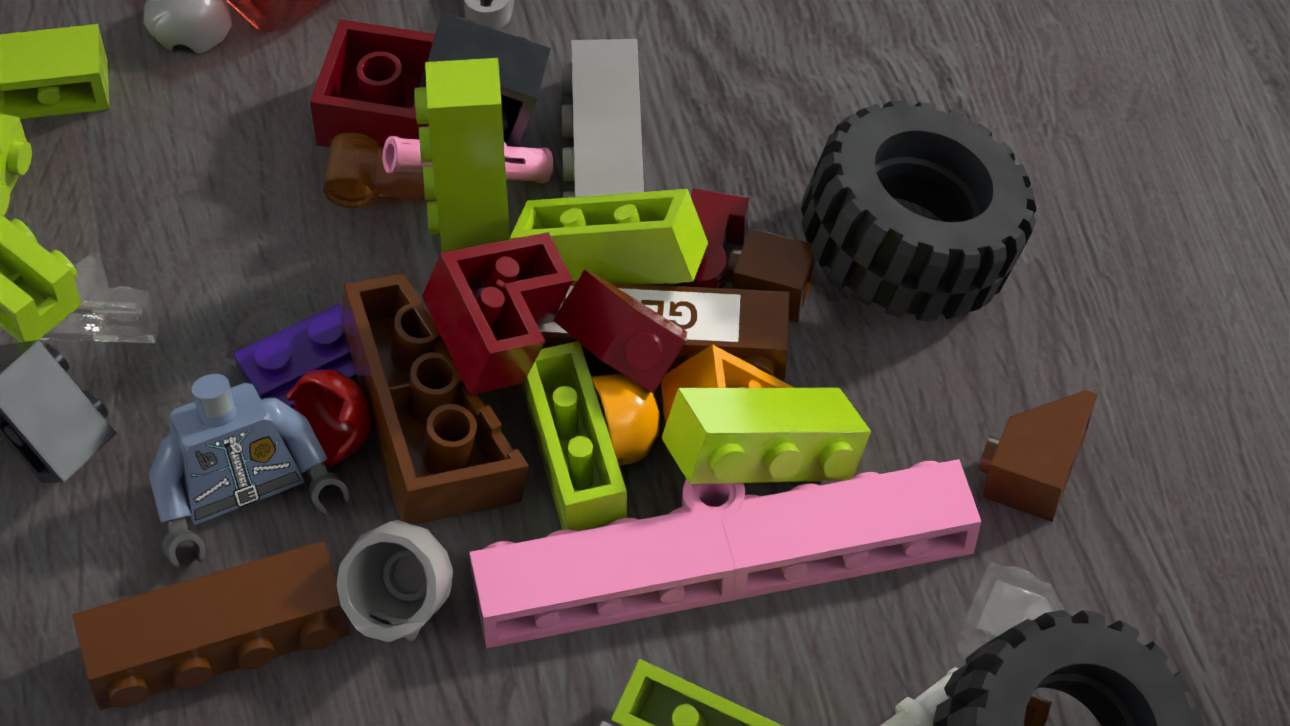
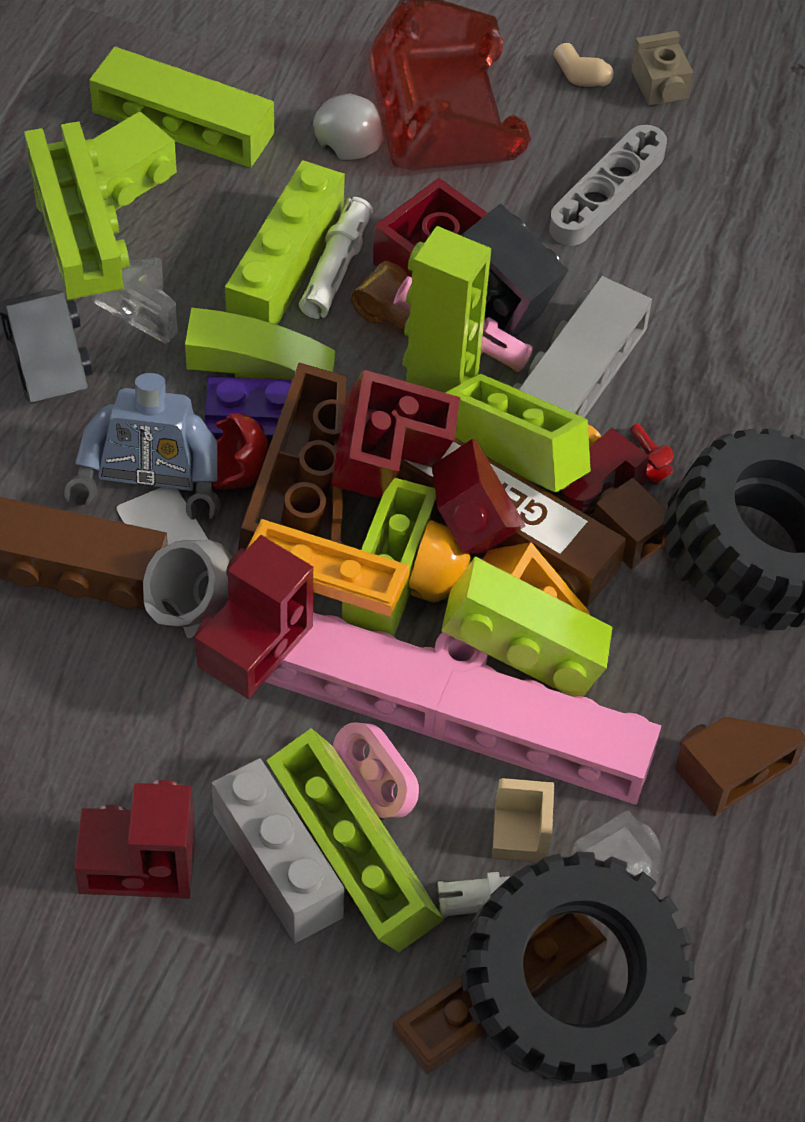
camera: 30 degrees right, 0 degrees up
(219, 176) = (286, 244): none -> lime brick
(261, 298) = (250, 347): none -> lime slope
(274, 143) = (342, 244): none -> white pin
(287, 523) = (162, 511): none -> white sticker
(504, 574) = (261, 621): none -> dark red brick
(528, 483) = (342, 570): none -> light orange tile
(714, 662) = (378, 771): none -> bright pink plate
(751, 188) = (659, 457): none -> red hand
(892, 631) = (522, 820): none -> tan panel

